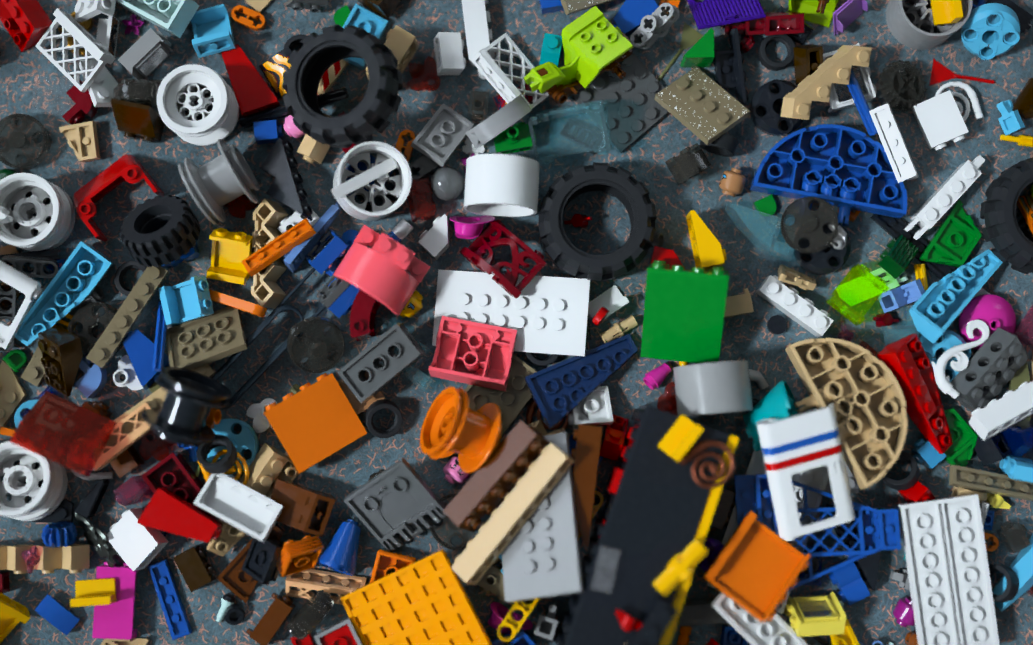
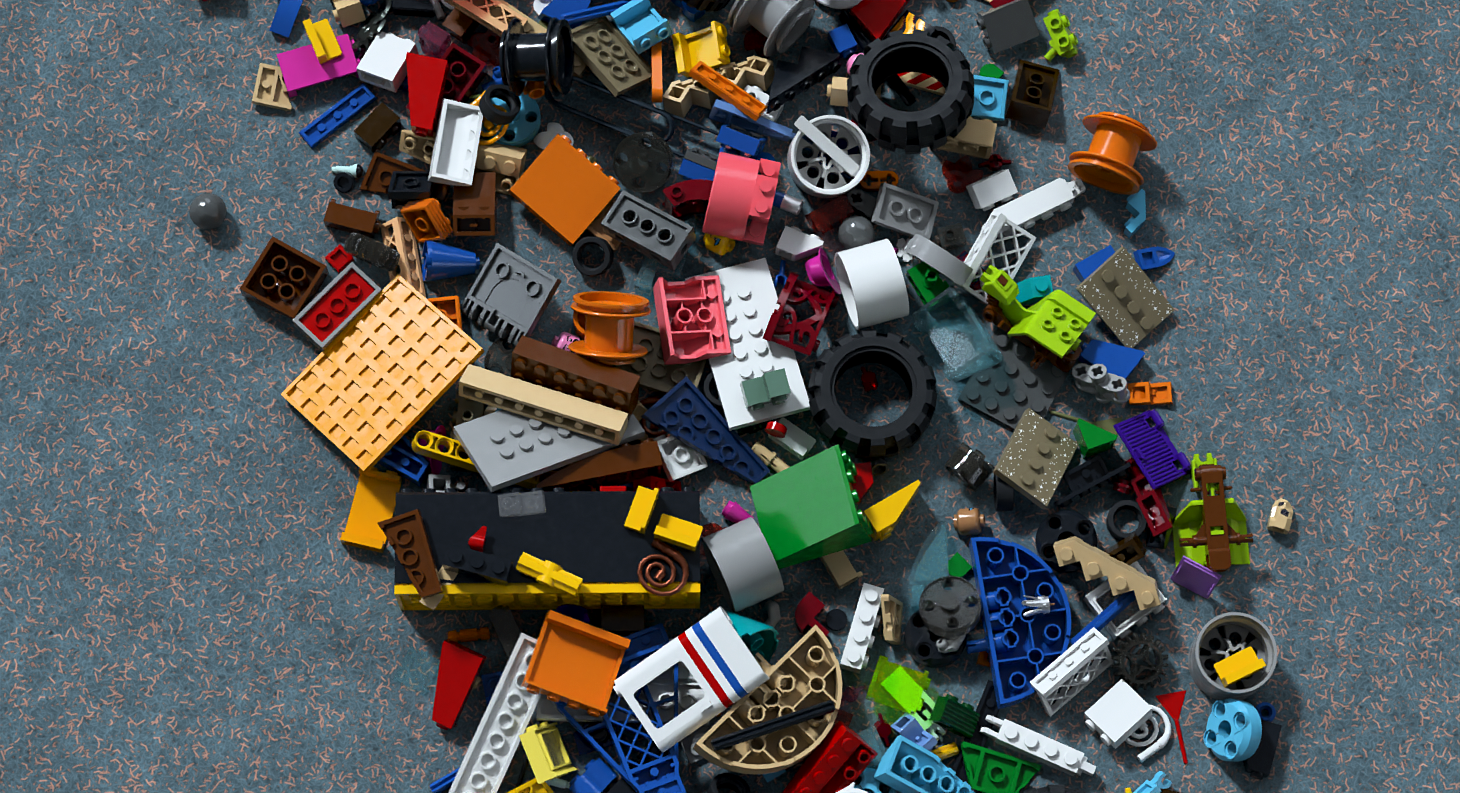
camera: 65 degrees right, 10 degrees down
(424, 43) = (995, 162): none -> dark red piece
(460, 262) = (781, 278): none -> blue hand
(564, 312) = (766, 389): none -> sand green brick
(648, 463) = (641, 509): none -> yellow panel
(764, 347) = (807, 612): none -> dark red brick
(835, 148) = (1042, 602): none -> flat silver piece
(871, 415) = (773, 725): none -> black axle

